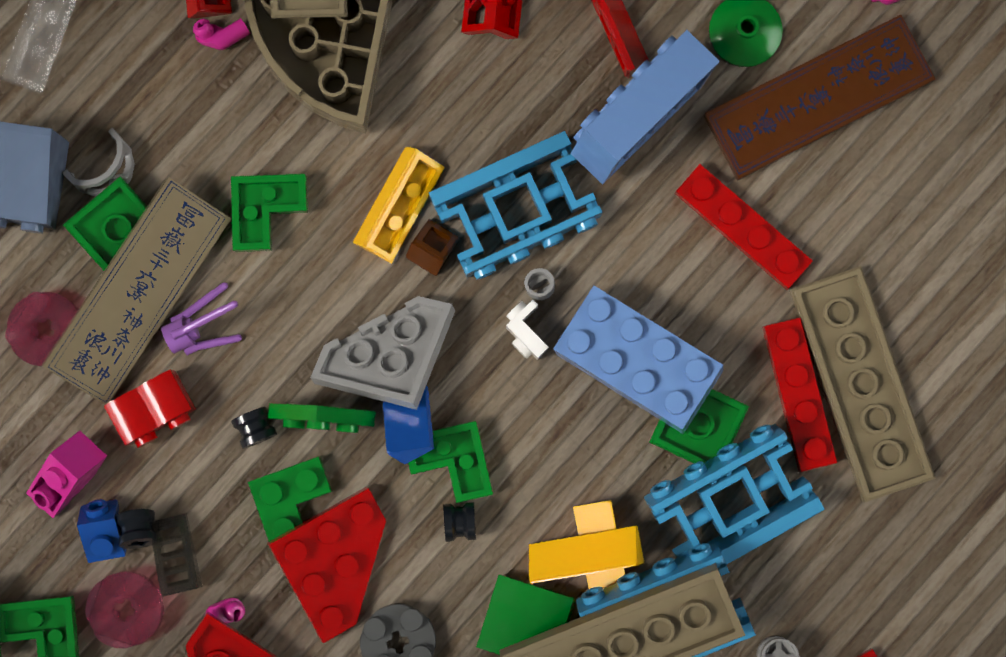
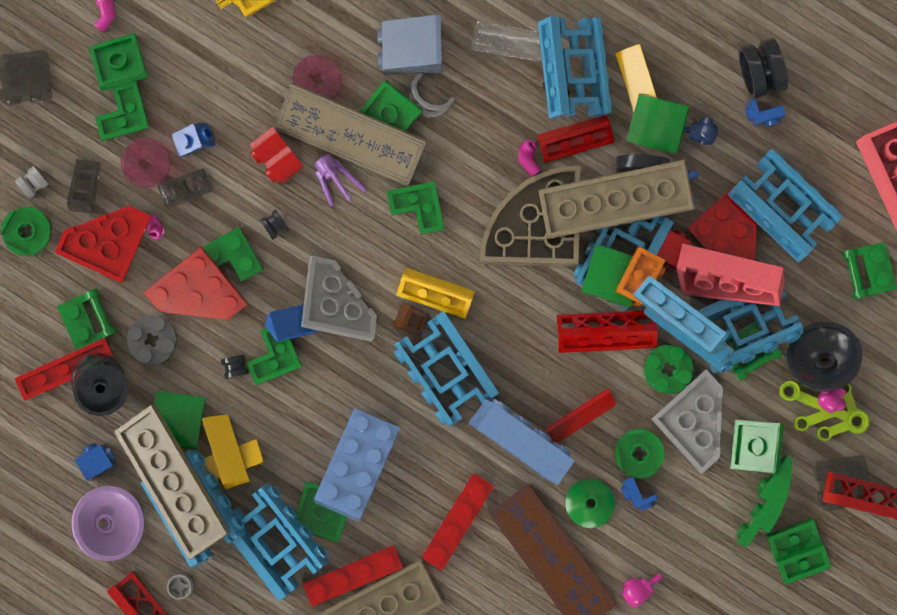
camera: 80 degrees right, 0 degrees up
(65, 473) = (225, 110): dark pink slope -> none
(136, 528) = (197, 161): black wheel -> none
(321, 417) = (286, 266): green plate -> none
(526, 340) = (359, 390): white bracket -> none
(536, 279) = (400, 390): light grey hinge -> none

